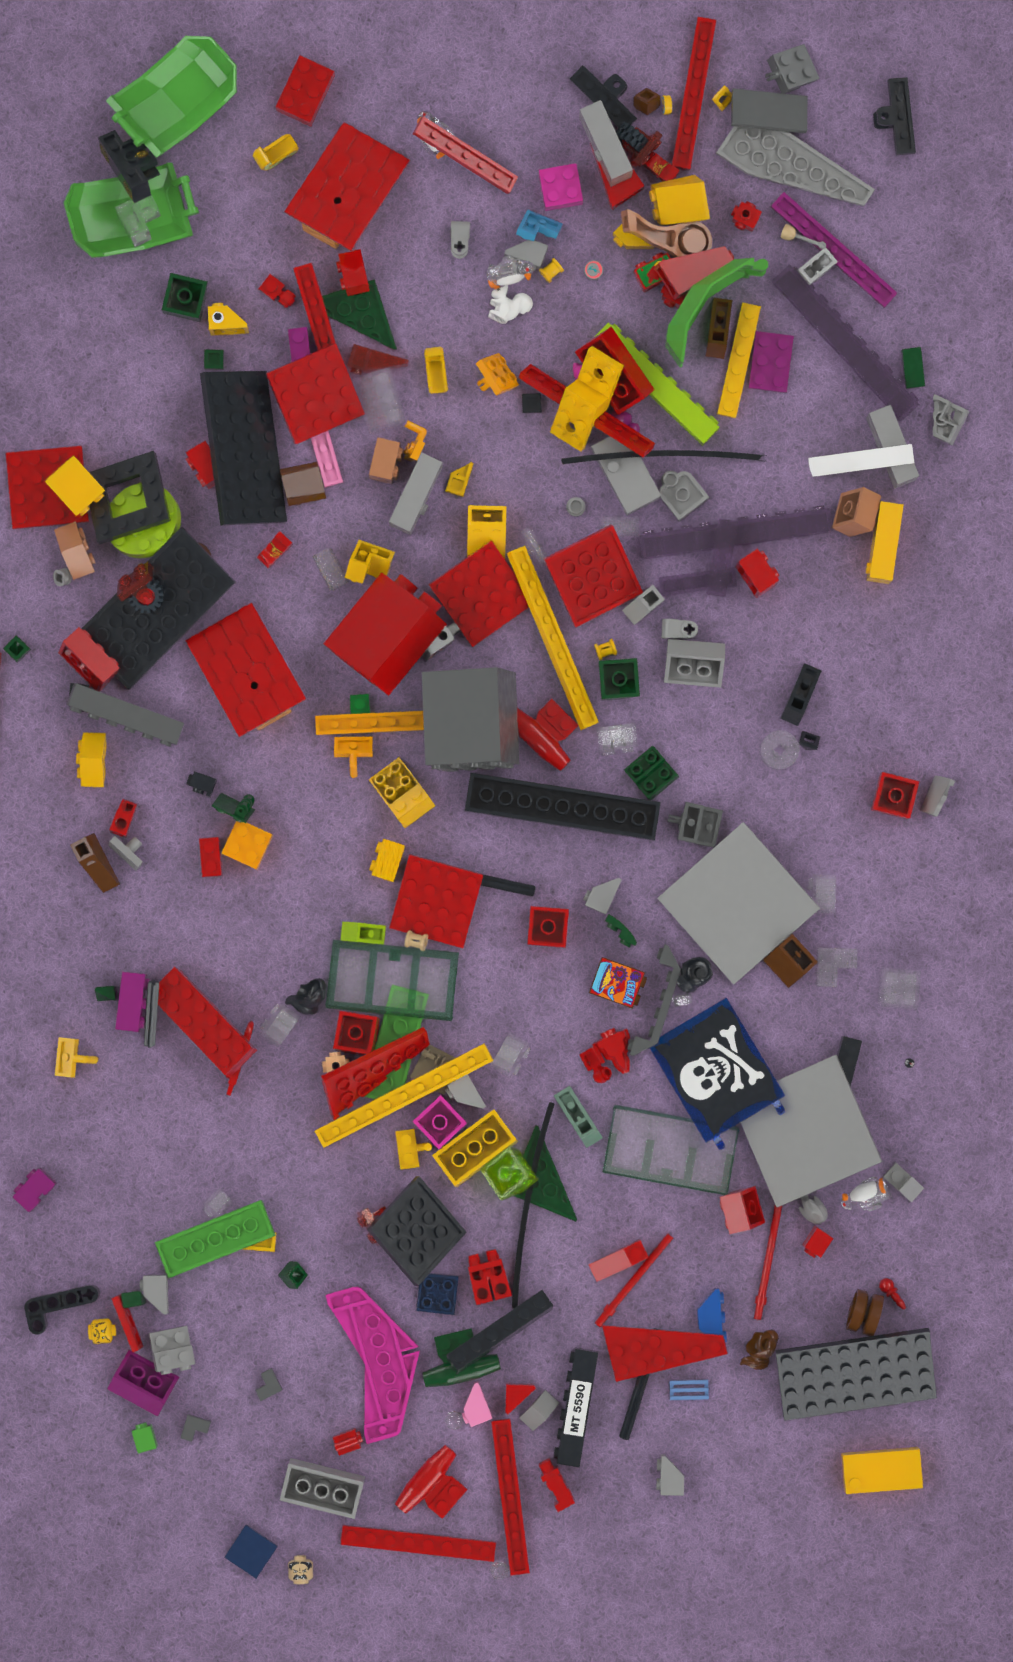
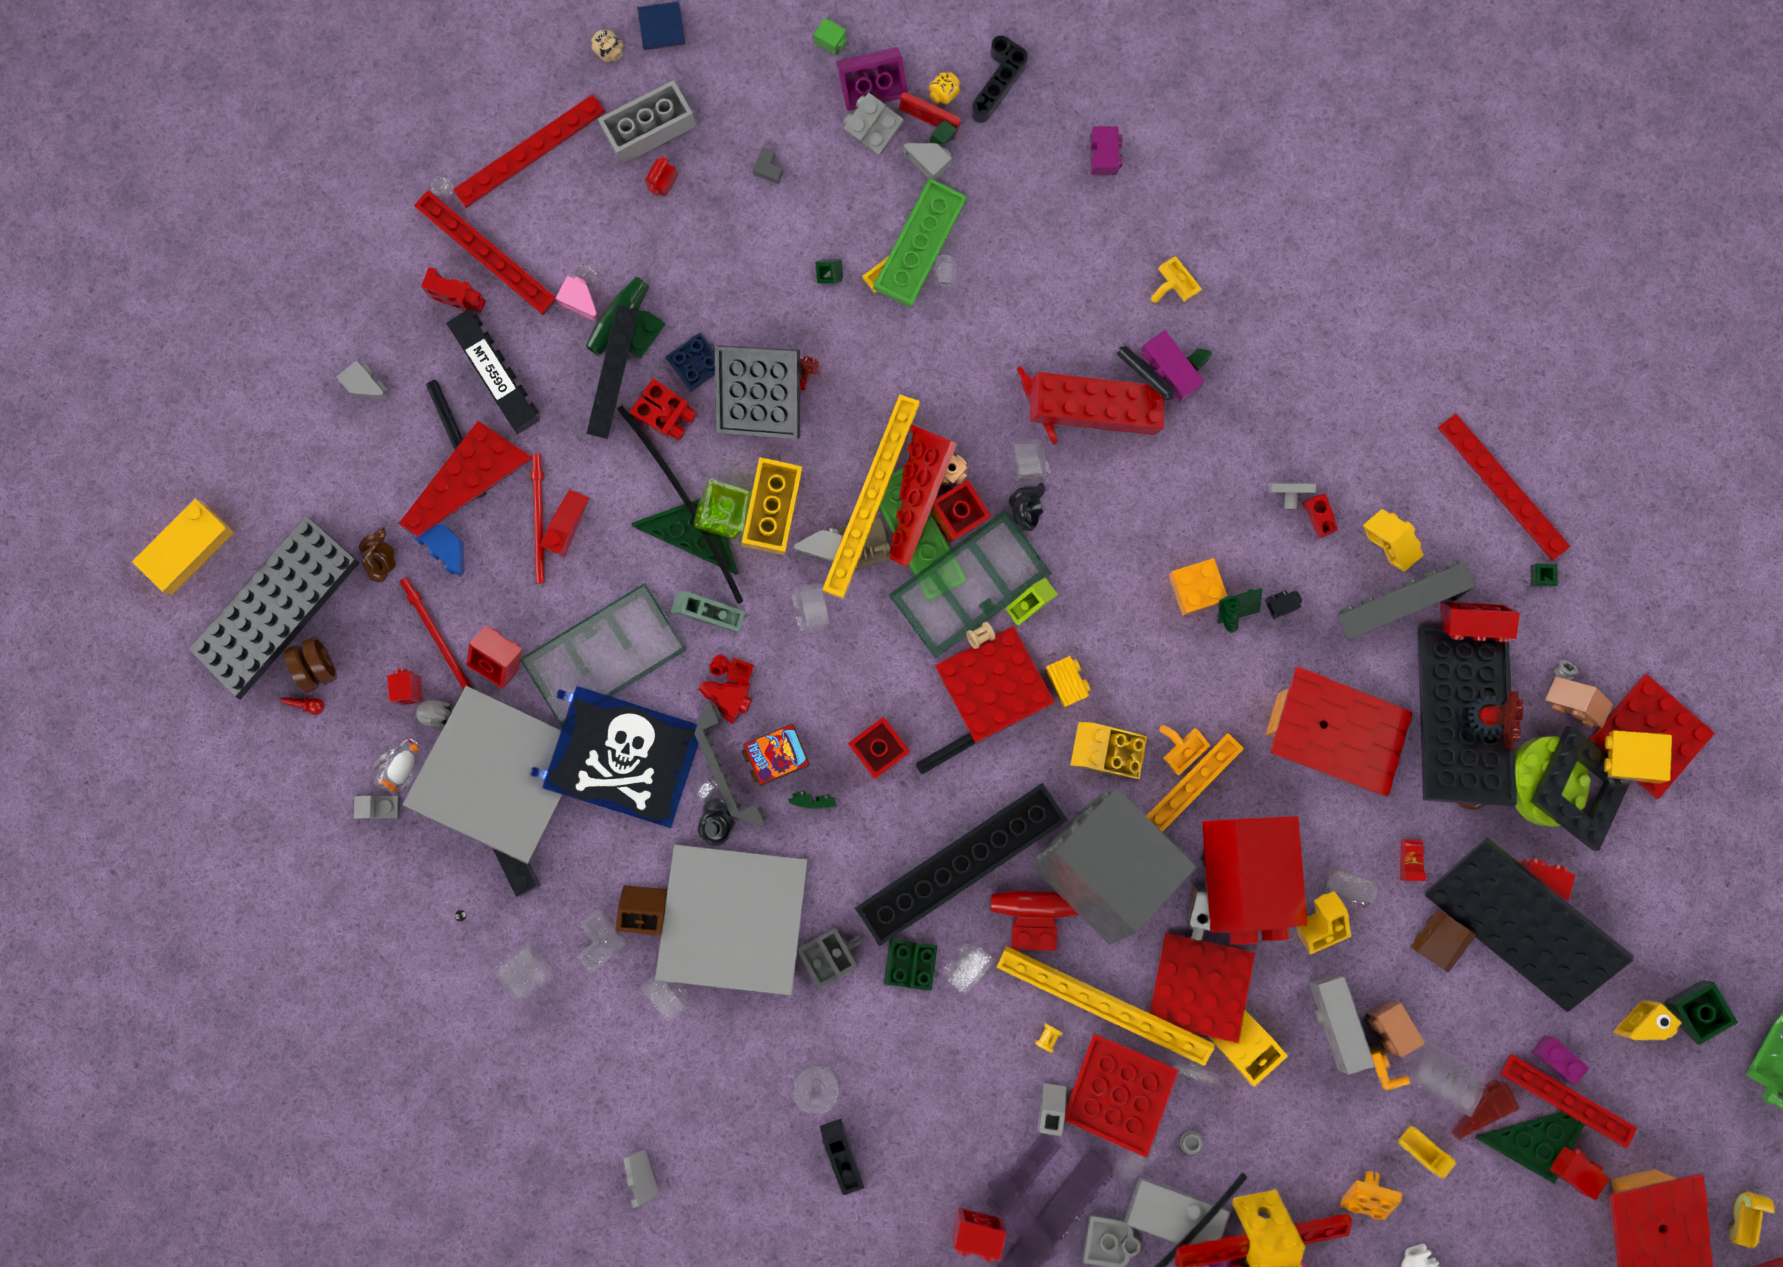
camera: 140 degrees right, 5 degrees down
(94, 861) = (1313, 457): reddish brown slope -> none
(194, 1424) = (800, 83): dark grey piece -> none
(210, 857) = (1219, 547): red brick -> none
(213, 359) = (1623, 981): dark green plate -> none
(273, 288) = (1630, 1092): red plate -> none
(315, 393) = (1511, 1032): red plate -> none
(326, 459) = (1454, 989): bright pink tile -> none
(359, 704) = (1215, 794): green plate -> none
(381, 1348) = (703, 278): dark pink wing -> none
(409, 1149) = (827, 458): yellow plate -> none
(432, 1484) = (557, 205): red plate -> none
(439, 1121) = (821, 501): dark pink brick -> none
(458, 480) = (1312, 1070): yellow tile -> none
(516, 1394) = (553, 338): red slope -> none
(531, 403) = (1314, 1200): black tile -> none
(539, 1410) = (522, 343): light grey slope -> none
(602, 895) = (856, 817): light grey slope -> none
(619, 679) = (1014, 1022): dark green slope -> none
(675, 629) = (1006, 1114): light grey piece -> none
(689, 1397) = (404, 464): medium blue tile -> none
(694, 663) = (960, 1098): light grey slope -> none
(809, 745) = (795, 1116): black slope -> none
(895, 795) = (677, 1143): red brick -> none

